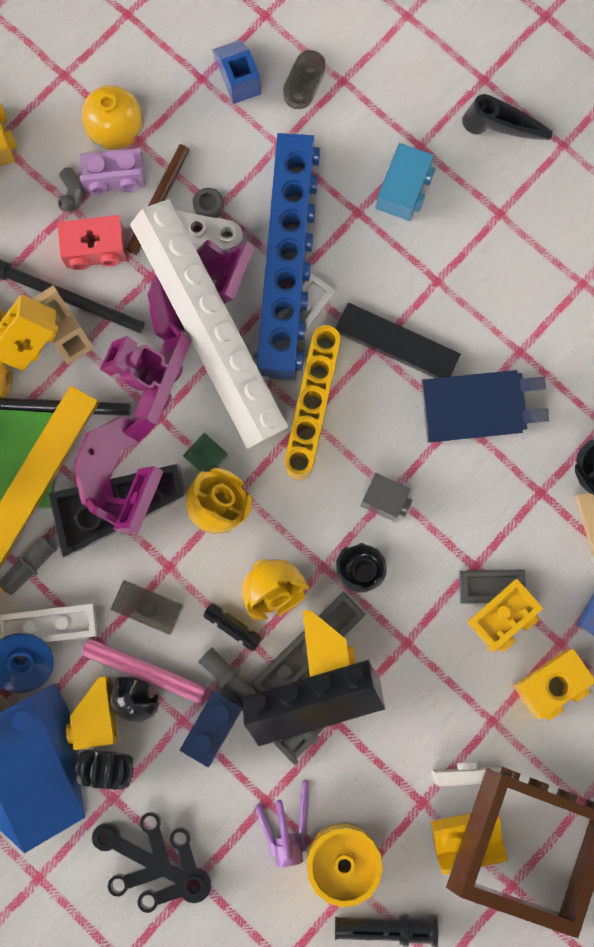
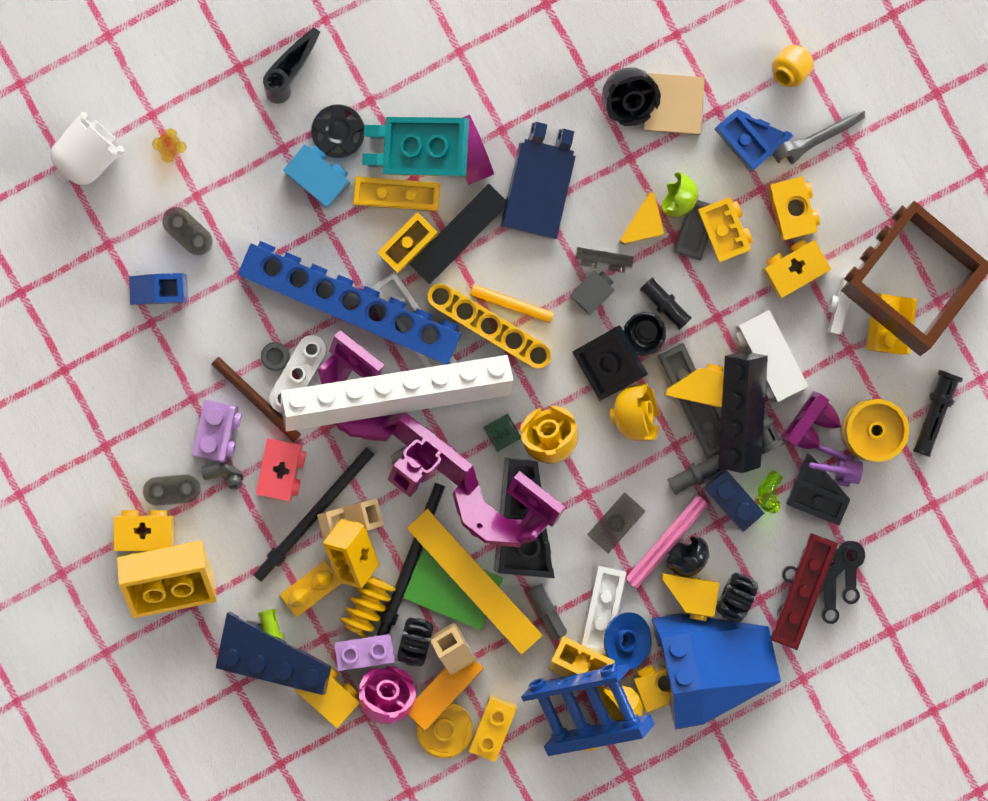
camera: 75 degrees left, 10 degrees up
(38, 148) = (171, 490): none -> clear smoke plate
(112, 117) = (165, 415): yellow cylinder -> none
(134, 844) = (803, 591): none -> dark red tile
(232, 626) = (656, 457): black axle -> none
(232, 764) = (767, 494): none -> clear neon green arm
(250, 823) = (818, 493): none -> black wing
(317, 541) = (609, 363): none -> black tile
(342, 787) = (816, 411): none -> magenta tile
(344, 421) = (512, 303): none -> yellow bar
(369, 289) = (407, 243): none -> yellow brick
(373, 733) = (764, 338): none -> white brick
(383, 29) = (161, 145): none -> clear yellow plate
(401, 580) = (665, 303): none -> black pin
(415, 268) = (396, 194): none -> yellow tile
(427, 512) = (616, 262): none -> clear smoke plate
(457, 191) = (338, 131): none -> black wheel
(472, 705) = (812, 267): none -> yellow brick
(475, 267) = (420, 146): none -> teal tile
(478, 528) = (645, 223): none -> yellow slope
(487, 321) = (477, 159): none -> magenta brick
(522, 558) = (681, 196): none -> lime hair

